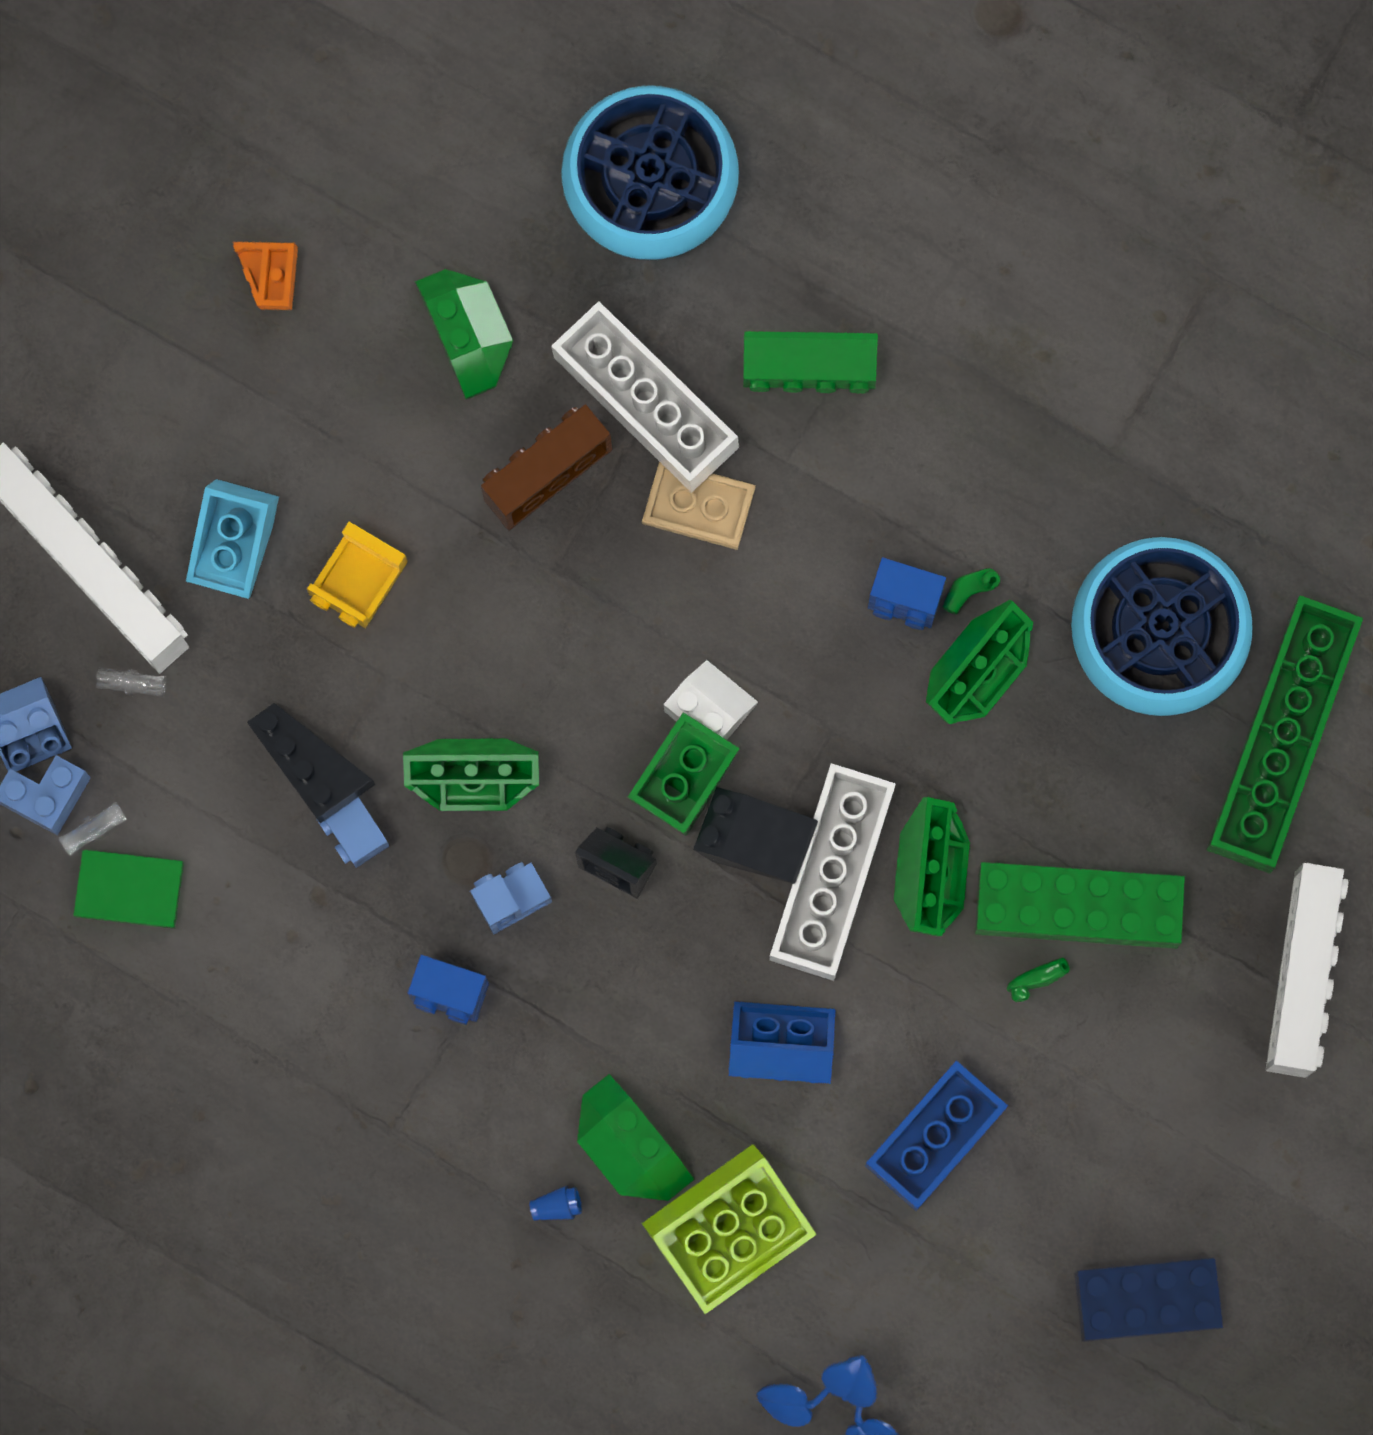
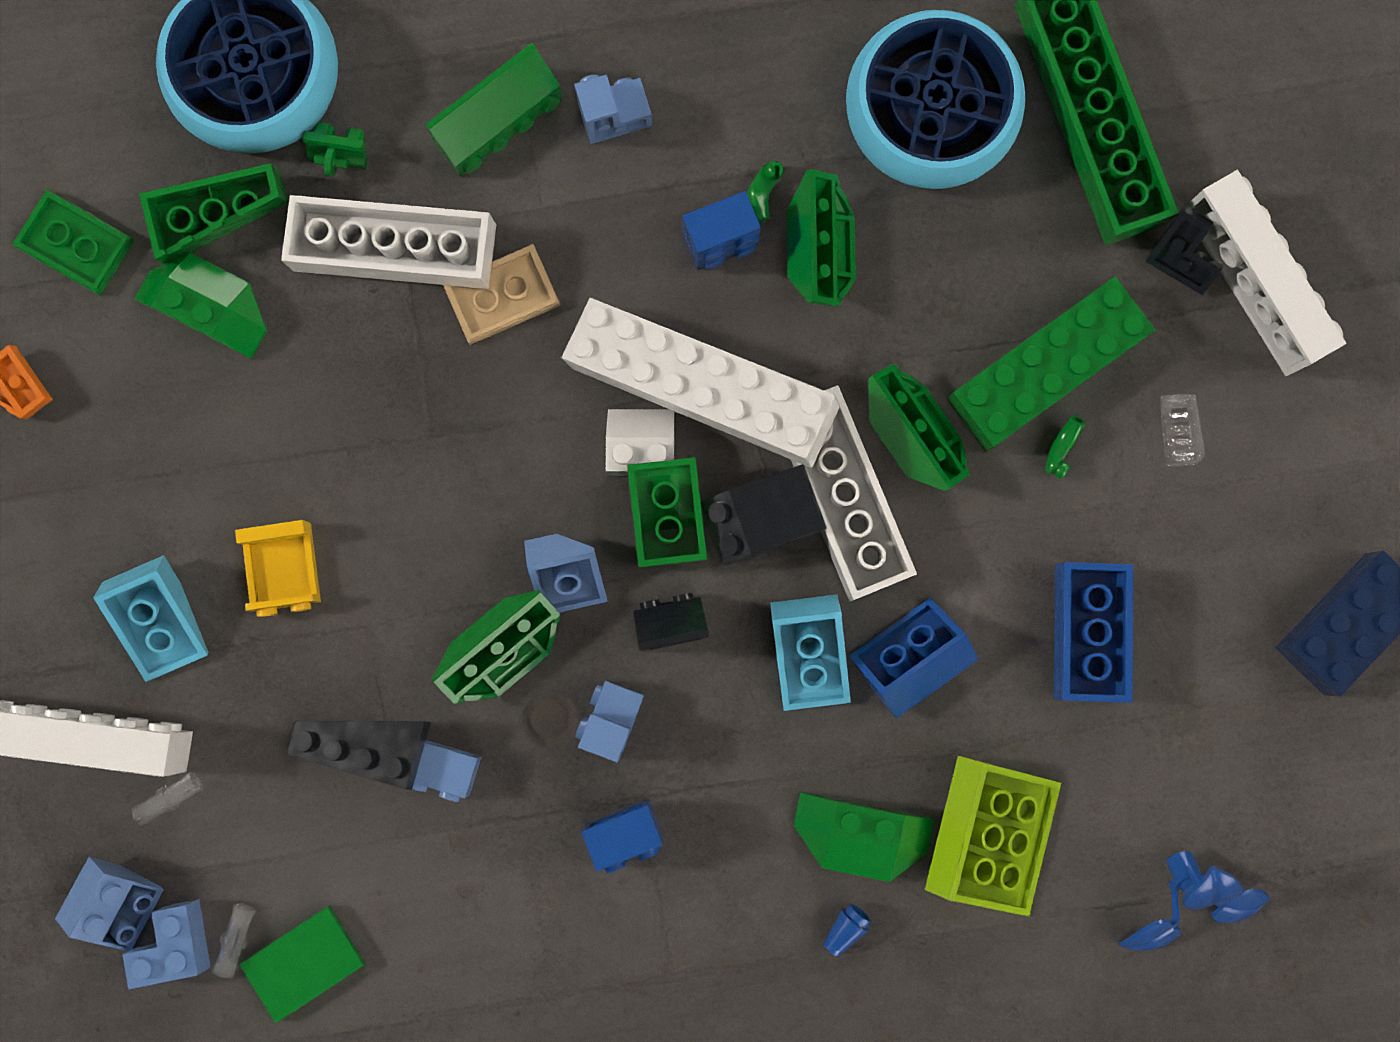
camera: 45 degrees left, 5 degrees up
(405, 201) = (73, 242): none -> green tile
(525, 259) = (206, 209): none -> green wedge
(546, 466) = (356, 358): reddish brown brick -> none
(569, 757) = (565, 572): none -> medium blue slope
(661, 292) = (335, 151): none -> green hips
(705, 972) = (810, 652): none -> medium azure slope
(792, 695) = (702, 382): none -> white brick
(902, 431) = (612, 109): none -> medium blue brick
(1127, 1064) = (1171, 444): none -> clear slope
(1253, 905) = (1177, 252): none -> black plate

